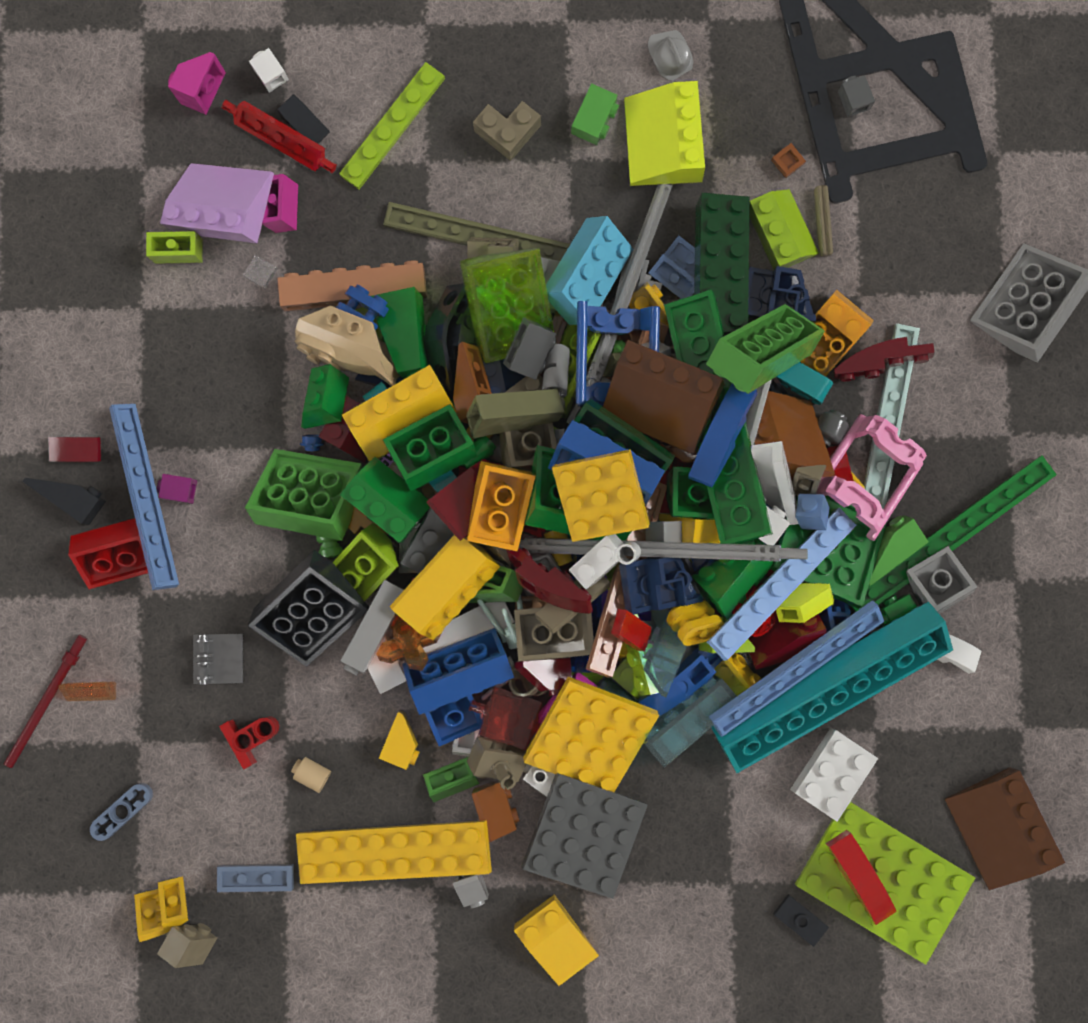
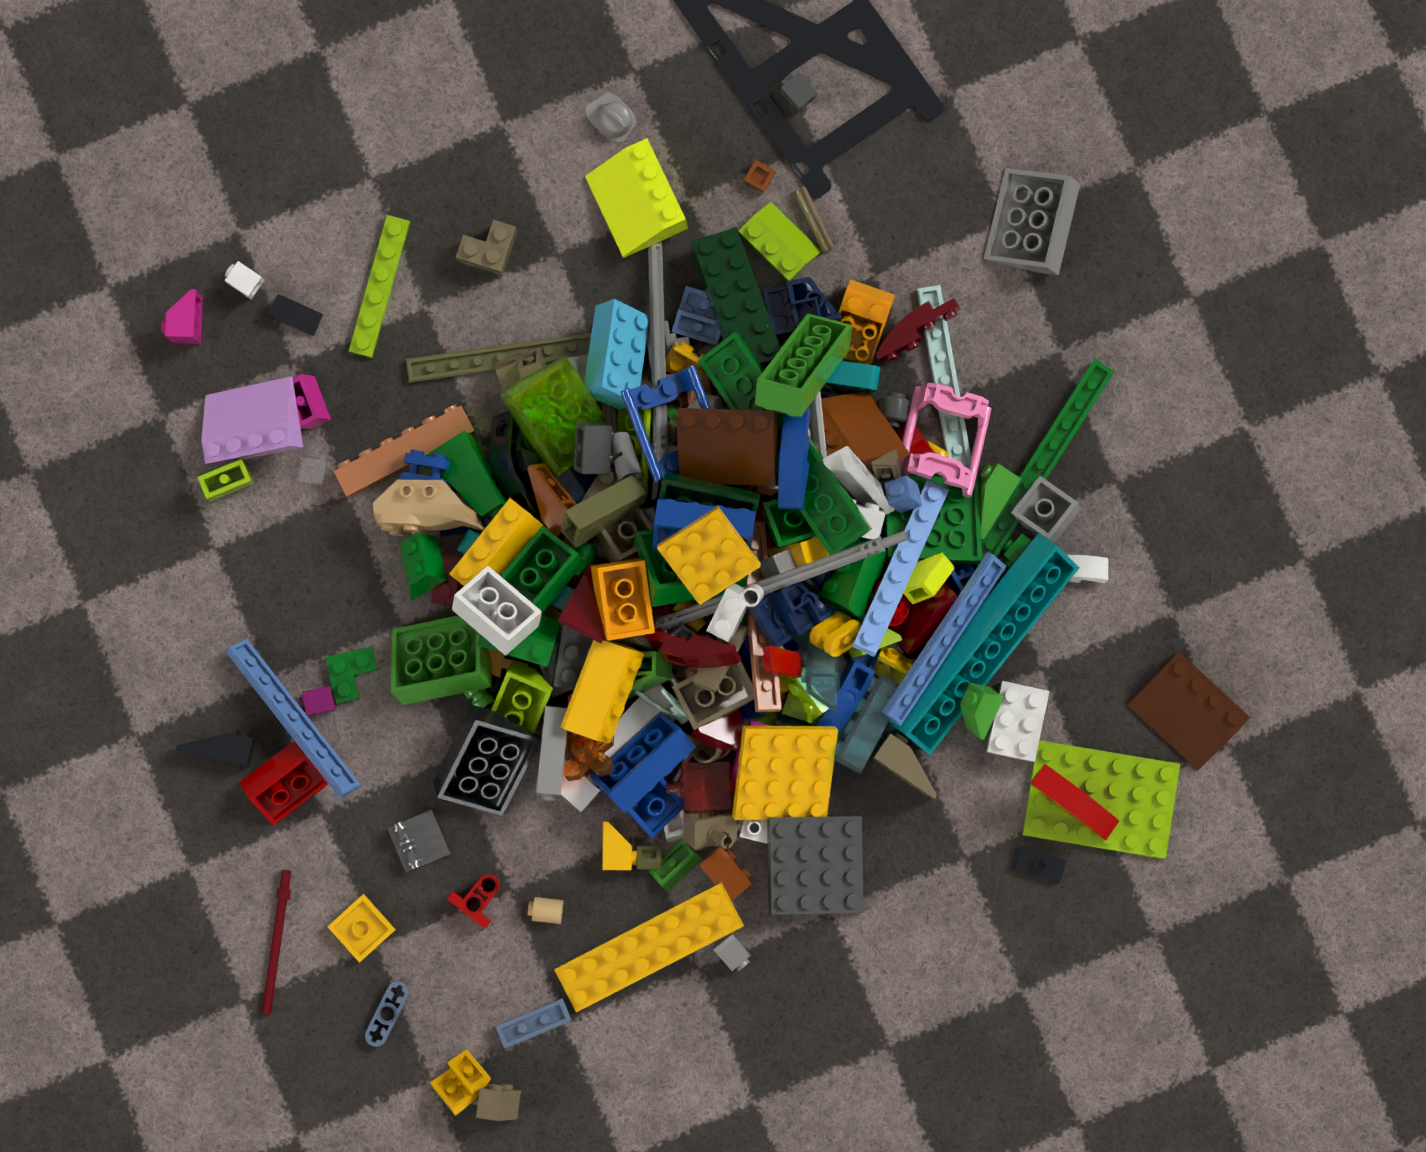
camera: 25 degrees left, 0 degrees up
(74, 449) = (208, 702): dark red slope -> none
(89, 691) = (313, 917): clear orange slope -> none
(130, 720) = (361, 928): none -> yellow plate
(212, 470) = (343, 669): none -> green plate
(279, 135) = (279, 337): red plate -> none
(311, 442) = (424, 609): blue plate -> none
(370, 467) = (496, 610): none -> white brick
(428, 763) = (648, 857): none -> olive plate
(555, 940) = (827, 970): yellow slope -> none
(594, 114) = (563, 203): bright green brick -> none
(709, 770) = (902, 762): none -> dark tan slope
(804, 748) = (980, 708): none -> bright green slope

